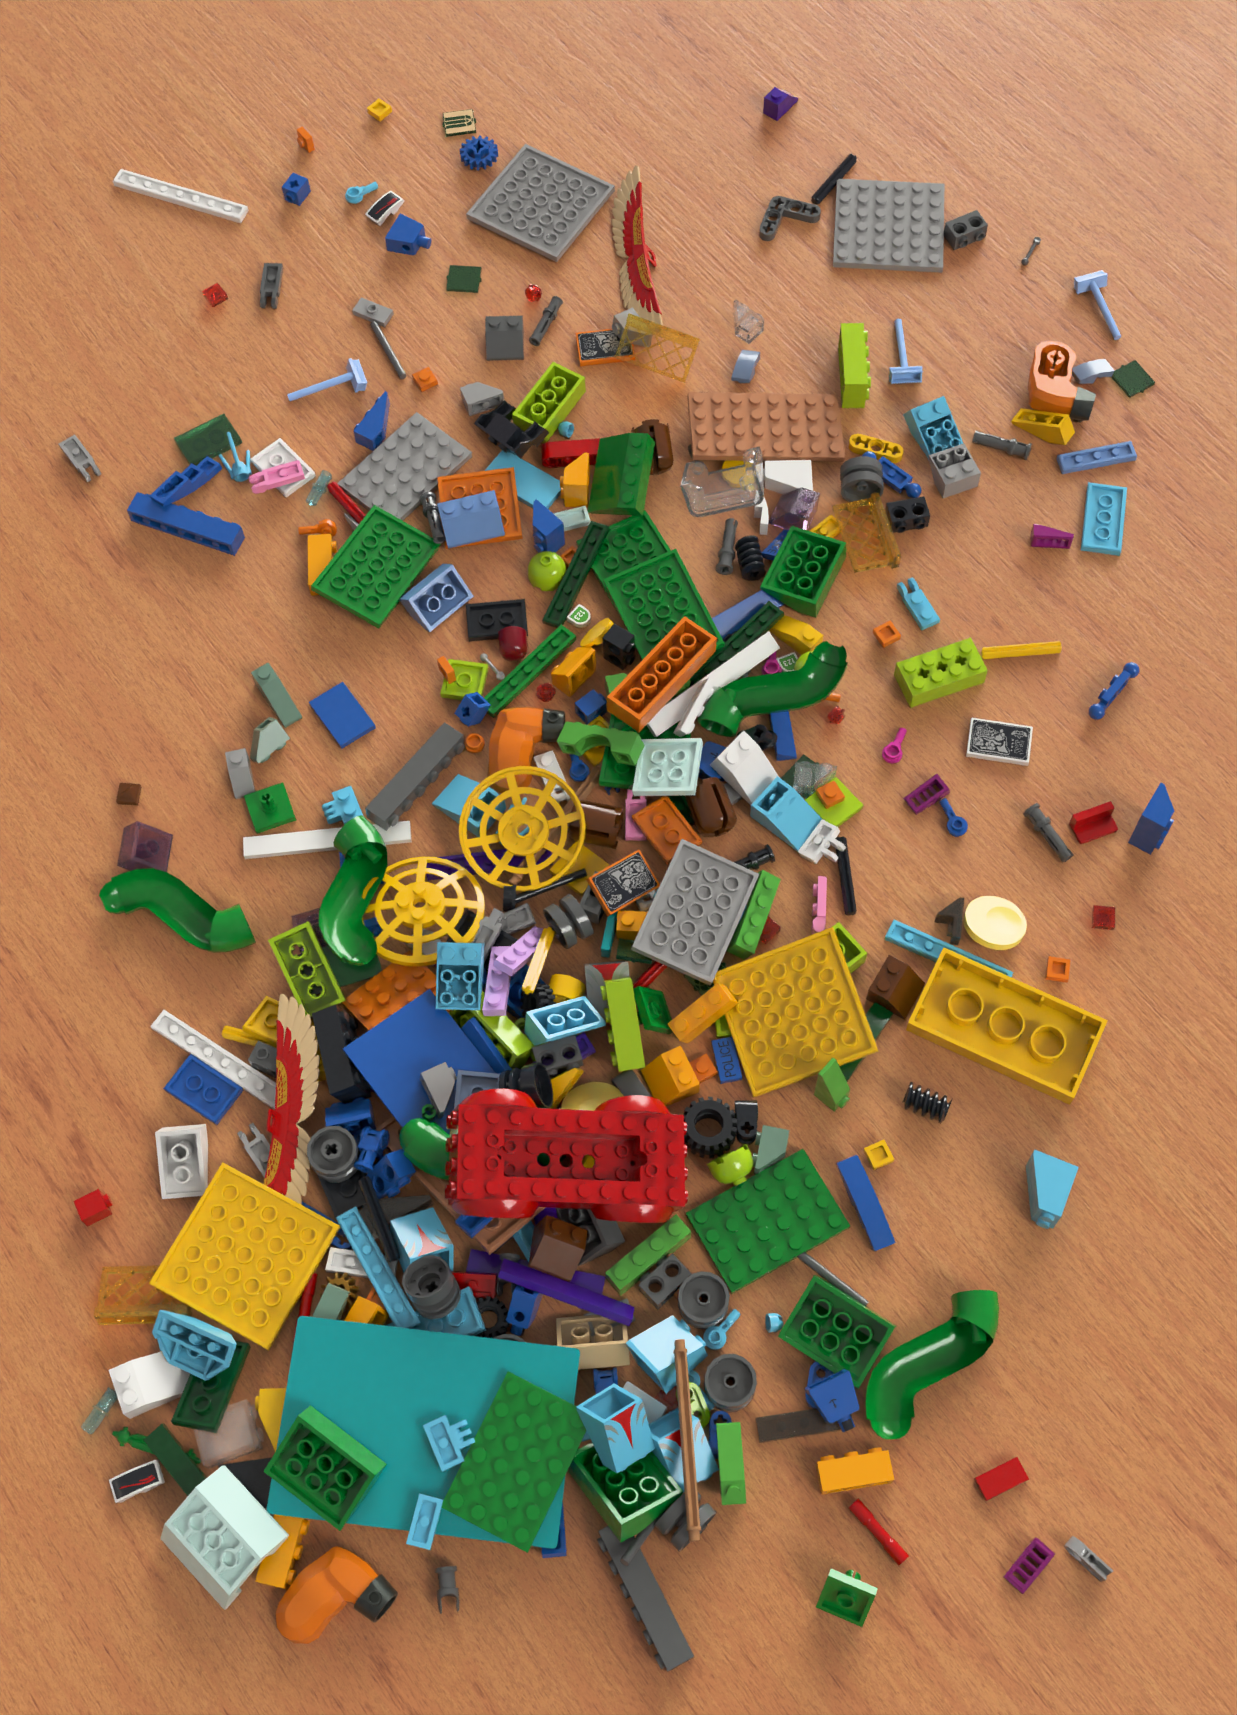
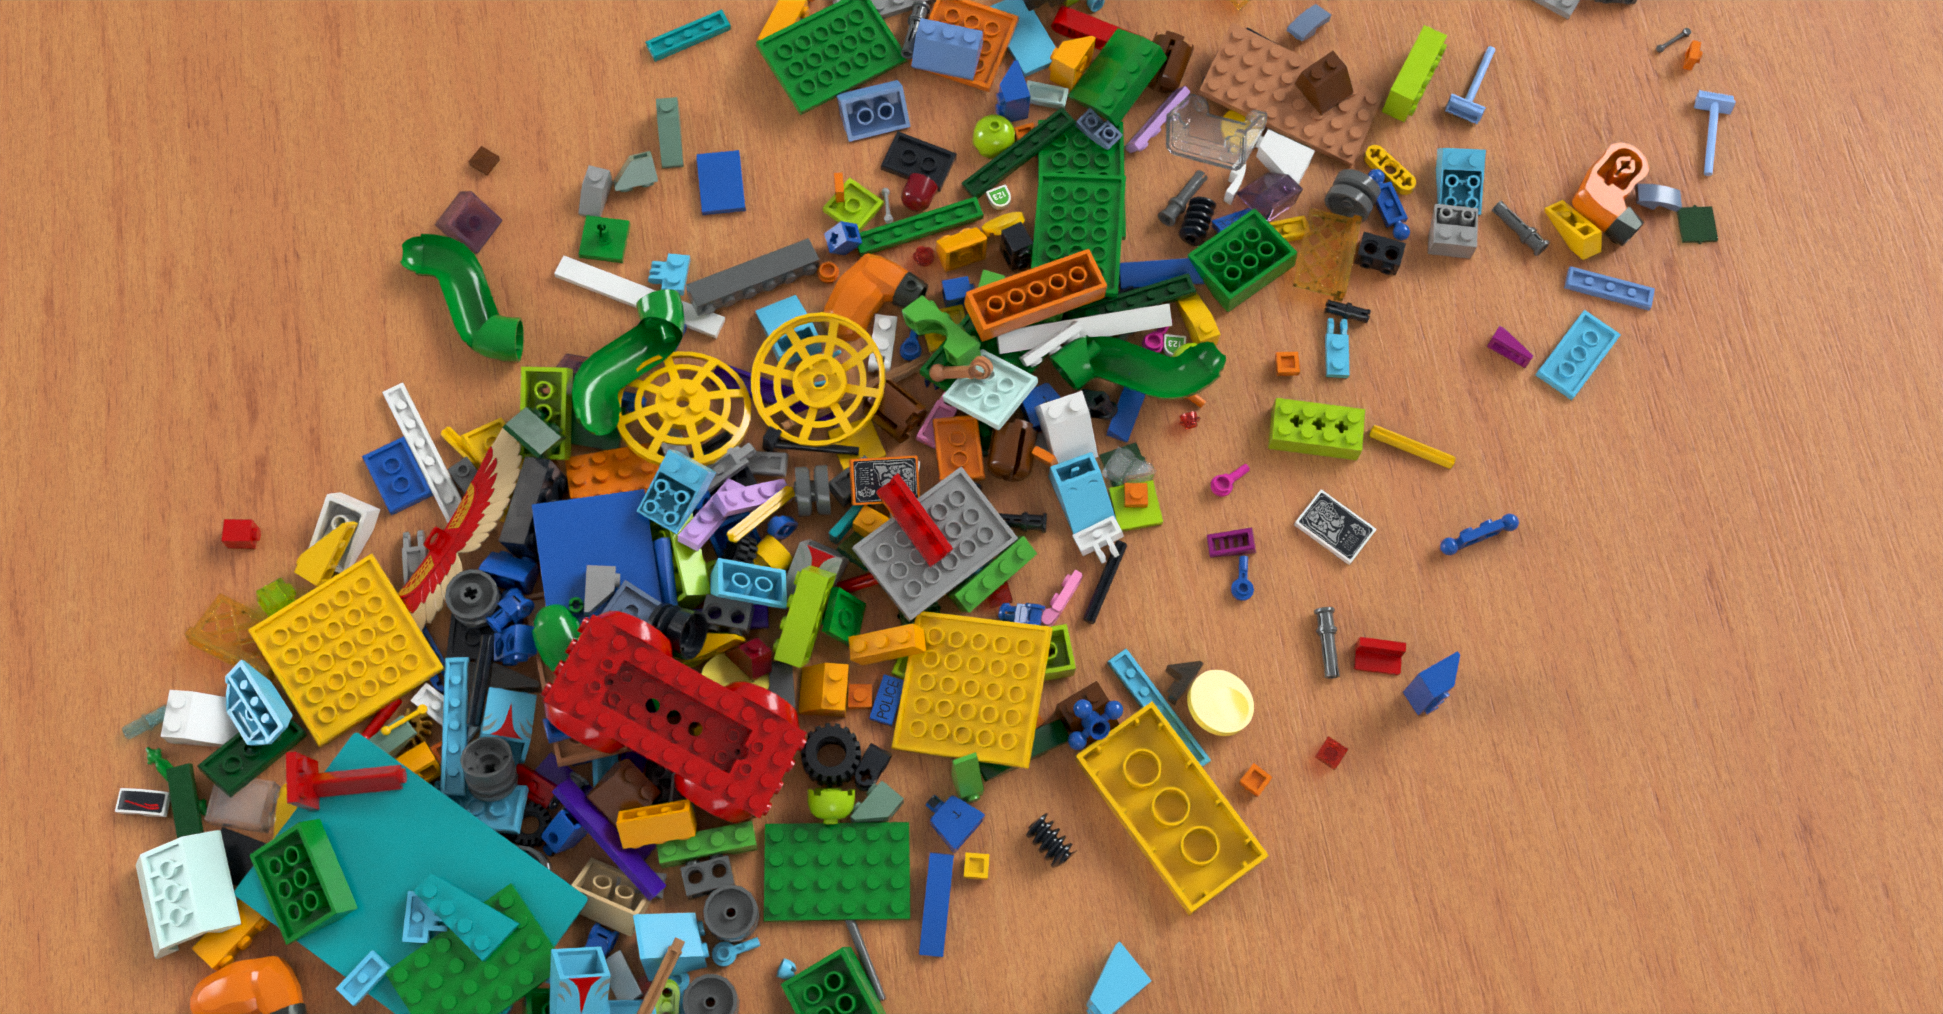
camera: 20 degrees right, 5 degrees up
(156, 1244) = (275, 596): none -> clear neon green brick
(179, 1190) = (322, 558): none -> yellow slope
(245, 611) = (688, 35): none -> teal tile
(310, 987) = (535, 432): none -> slope
(316, 1362) = (306, 784): none -> red piece
(343, 1269) = (422, 709): none -> yellow hinge
(491, 1419) = (470, 919): none -> teal wing
(558, 963) = (781, 526): none -> blue plate
(597, 1081) = (752, 658): none -> dark red slope
(601, 1257) = (656, 824): none -> light orange brick
(617, 774) = (940, 372): none -> nougat piece
(630, 526) = (1097, 130): none -> sand blue slope
(671, 495) = (1152, 126): none -> lavender plate
(671, 899) = (914, 520): none -> red fence
(741, 799) = (1044, 456): none -> orange tile
(789, 403) = (1325, 83): none -> reddish brown slope
(797, 931) = (1022, 613): none -> blue connector
(839, 1127) = (954, 820): none -> blue torso
(907, 989) = (1083, 709): none -> blue piece
(908, 571) = (1347, 311): none -> black pin
(1053, 254) = (1693, 55): none -> orange plate

